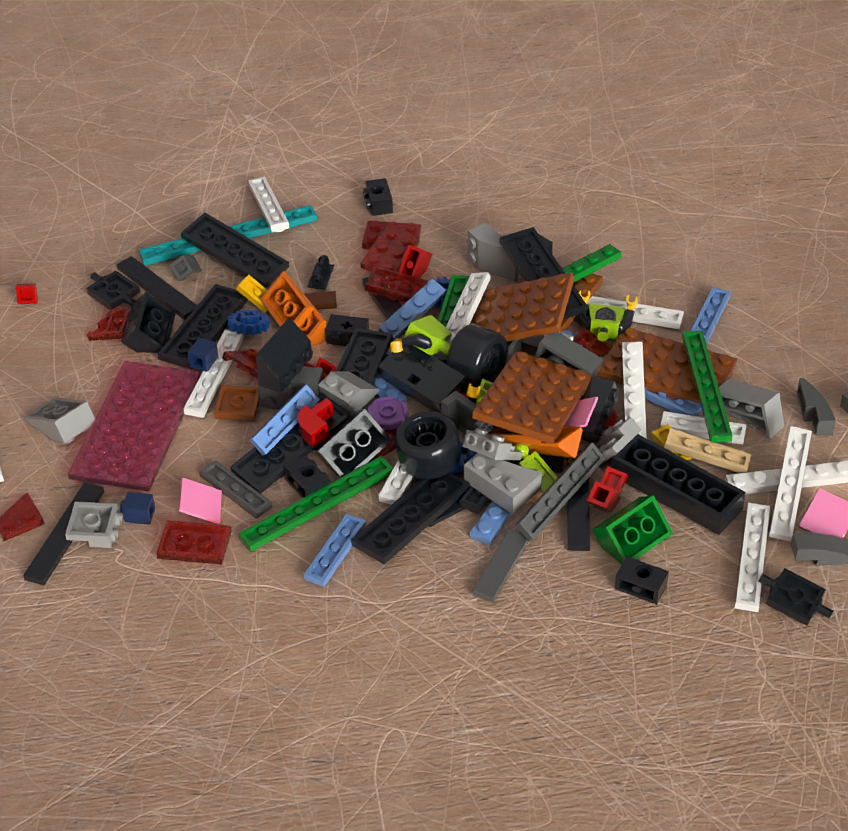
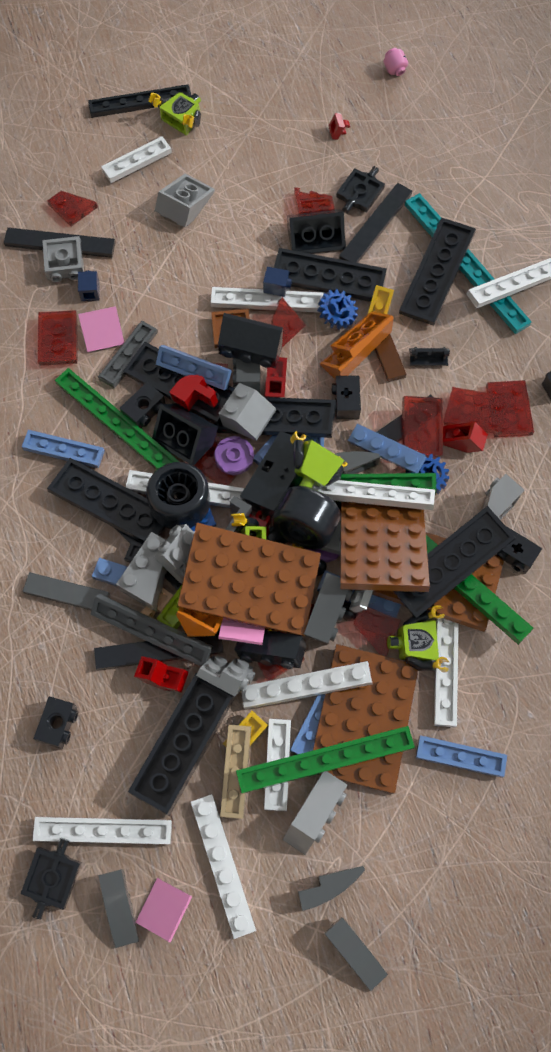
camera: 75 degrees right, 25 degrees up
(134, 426) = (188, 256): clear pink plate -> none
(185, 266) = (406, 238): dark grey panel -> none
(633, 529) = (119, 706): green slope -> none
(790, 484) = (200, 863): white plate -> none

